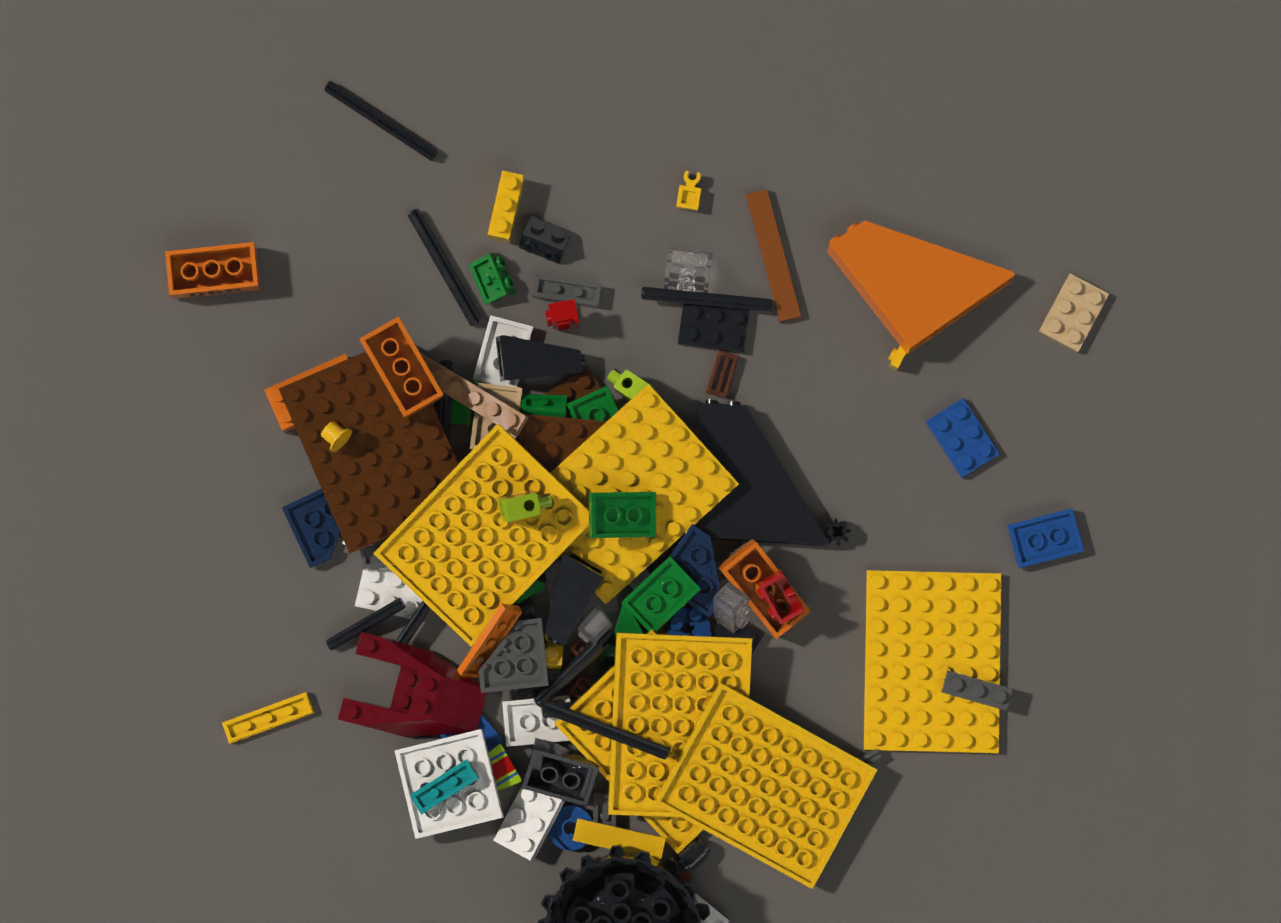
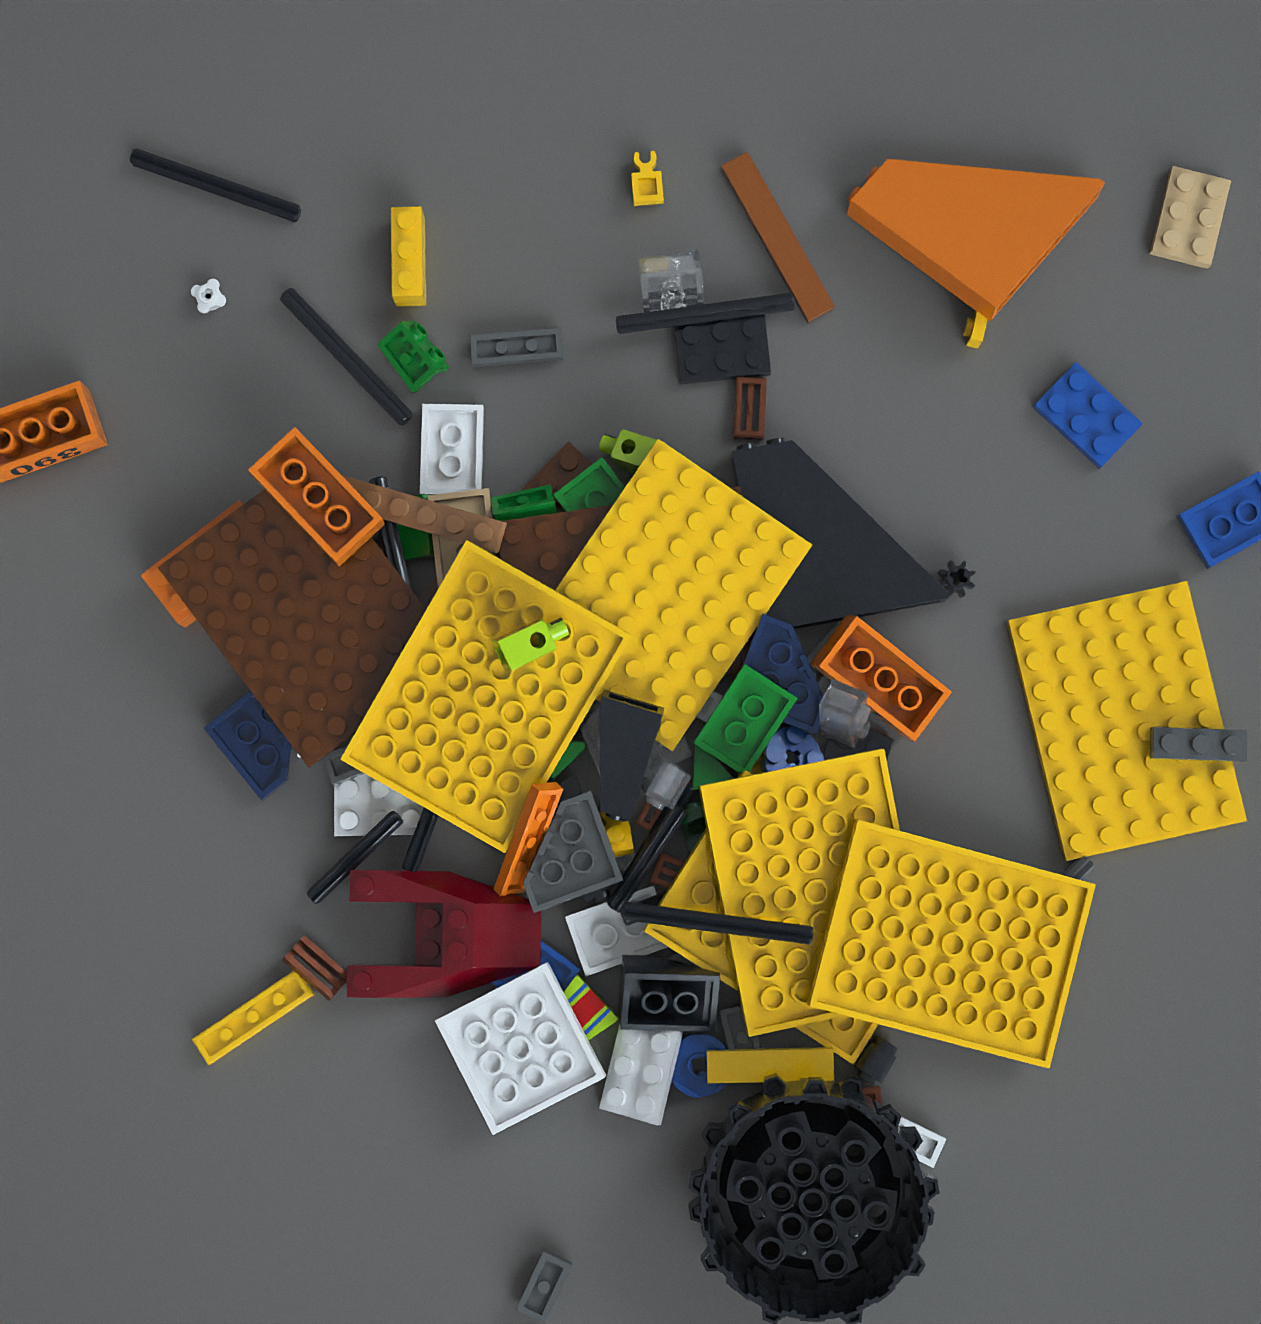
camera: 15 degrees left, 0 degrees up
(326, 689) = (324, 959): none -> copper tile
(336, 435) = (250, 611): yellow piece -> none
(361, 195) = (217, 299): none -> white plate
(444, 786) = (515, 1055): teal plate -> none
(533, 359) = (493, 447): black slope -> none
(544, 239) = (470, 288): black bracket -> none
(562, 315) = (519, 379): red window -> none
(622, 514) = (666, 623): green plate -> none
(763, 592) = (918, 674): red window -> none

